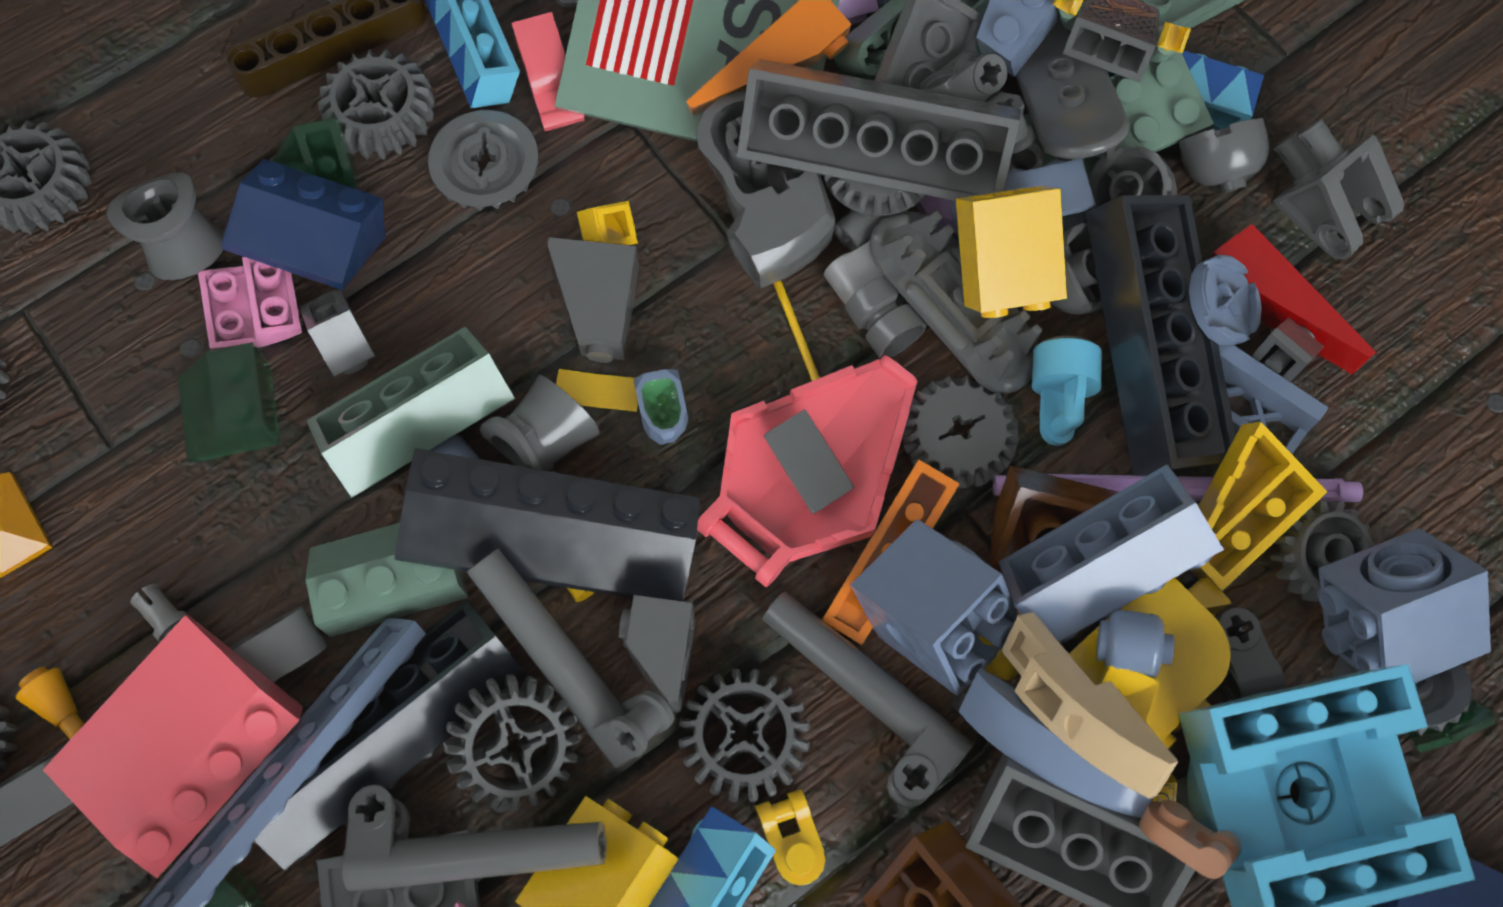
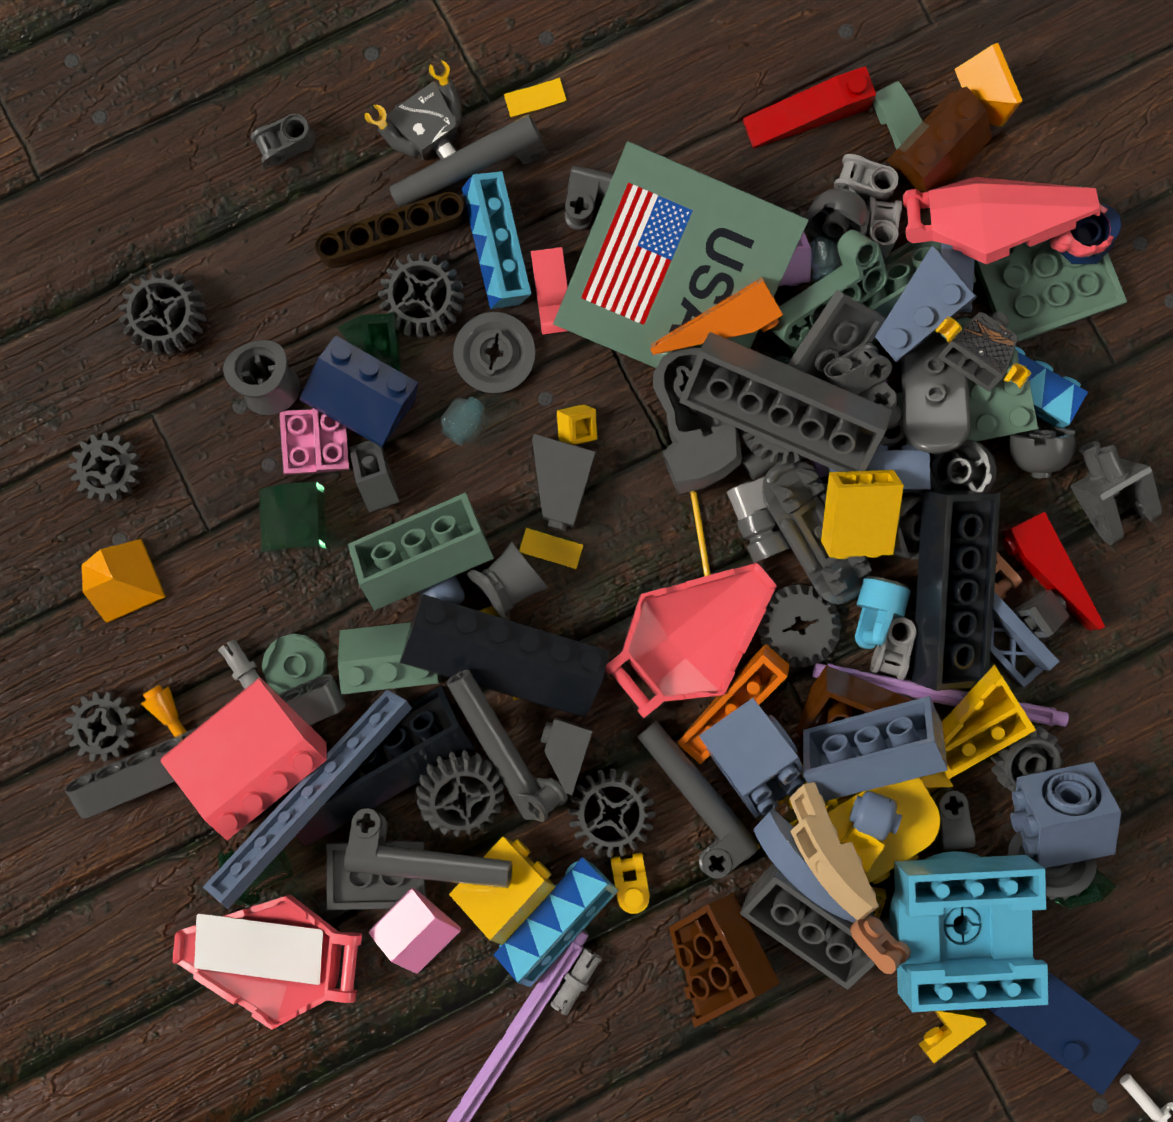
camera: 10 degrees right, 15 degrees up
(244, 601) = (293, 662): none -> sand green tile
(452, 242) = (464, 420): none -> clear light blue head
(661, 405) = (594, 574): rock -> none
(808, 461) = (688, 636): dark grey slope -> none
(1098, 442) = (895, 651): none -> light grey piece
(1224, 300) = (1006, 573): sand blue tile -> none

